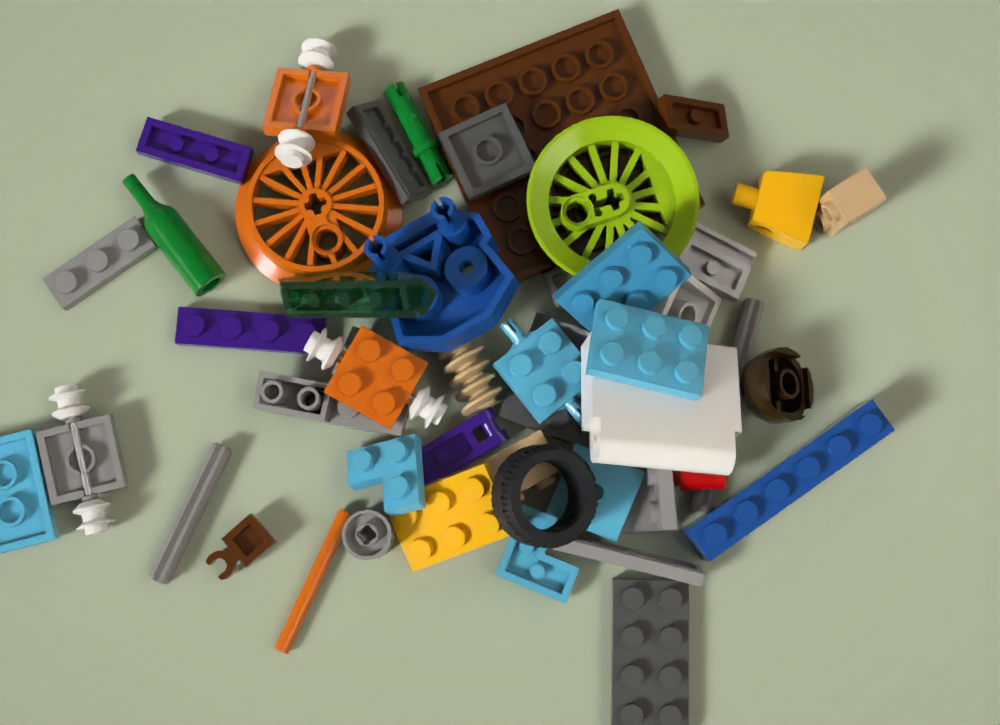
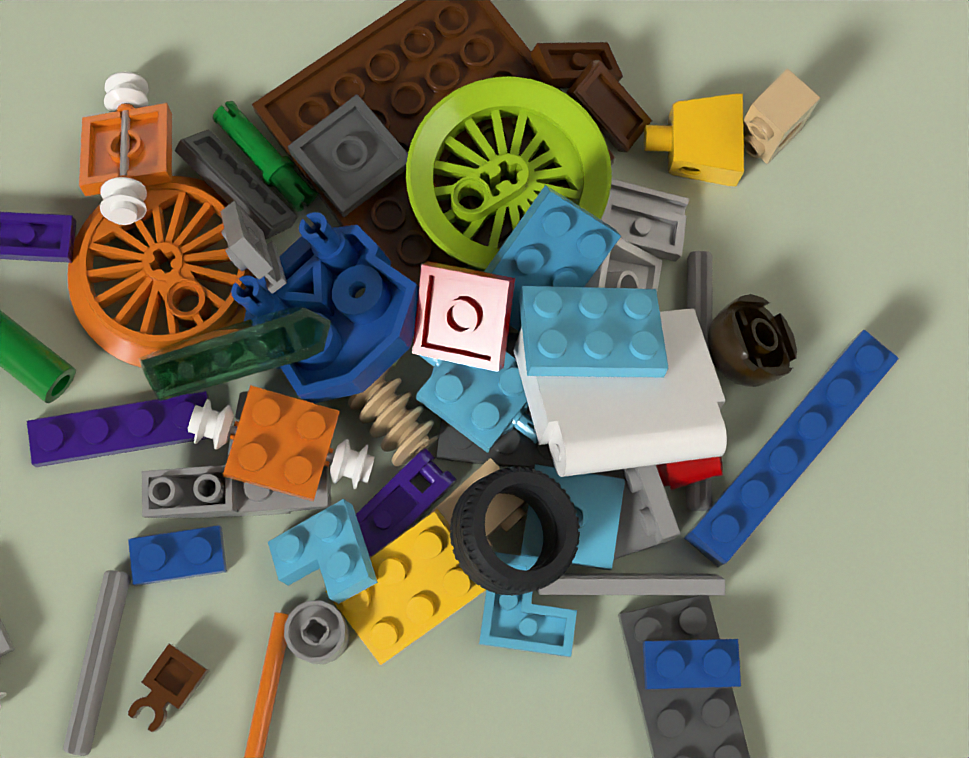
camera: 15 degrees left, 5 degrees down
(273, 444) = (177, 555): none -> blue plate
(387, 212) = (249, 248): none -> light grey plate
(546, 310) = (463, 316): none -> plate
(660, 634) = (691, 664): none -> blue plate
(711, 160) = (609, 105): none -> reddish brown tile

